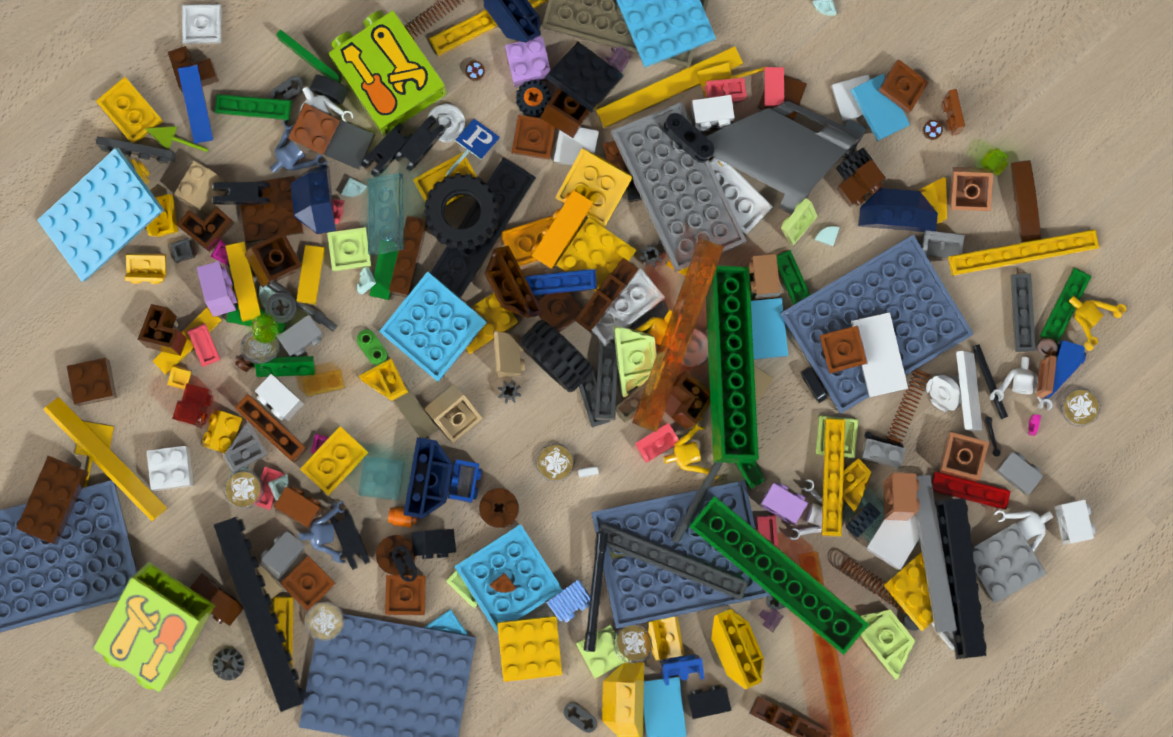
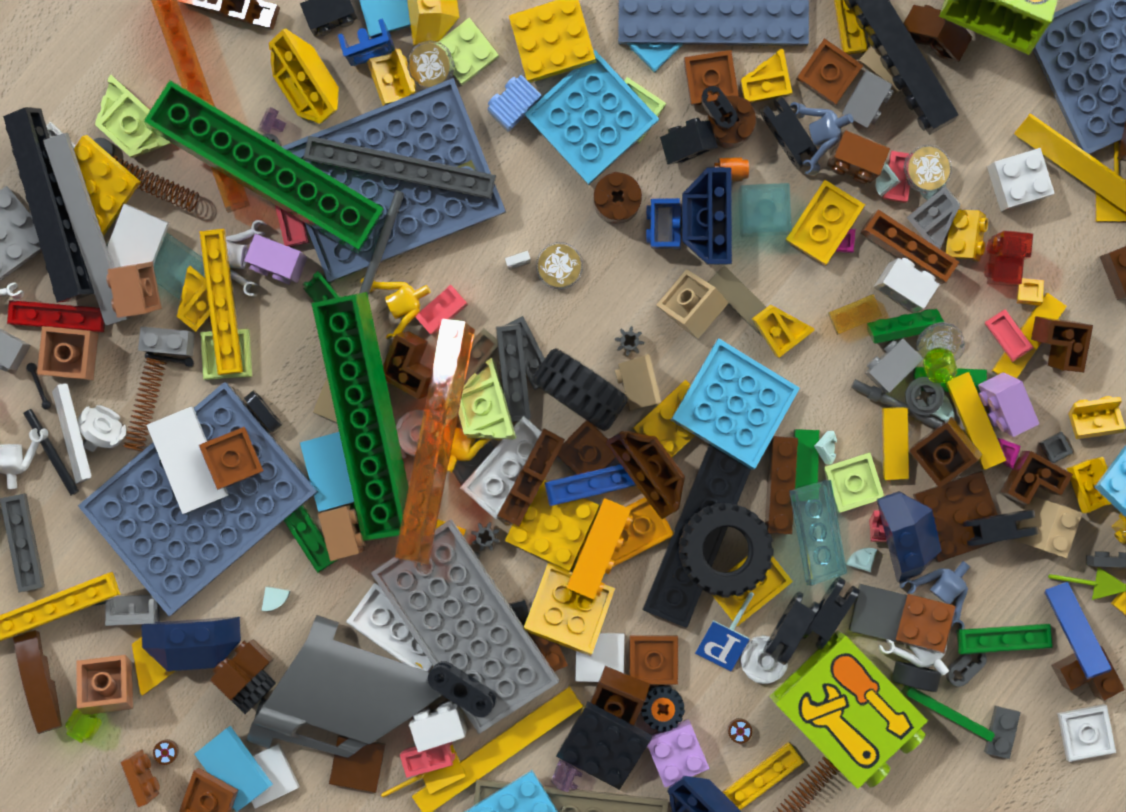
camera: 170 degrees right, 5 degrees up
(243, 364) = (957, 319): reddish brown plate -> none
(267, 36) = (1004, 725): none -> dark grey plate
(324, 621) = (801, 28): clear tile -> none
(359, 585) = (767, 80): none -> yellow wing
(371, 347) = (804, 368): bright green plate -> none
(503, 584) = (597, 107): dark orange tile -> none
(591, 634) = (481, 63): black piece -> none
(773, 86) = (368, 773): coral tile -> none
(799, 221) = (312, 604): yellowish green plate -> none
(862, 520) = (176, 254): black wheel -> none

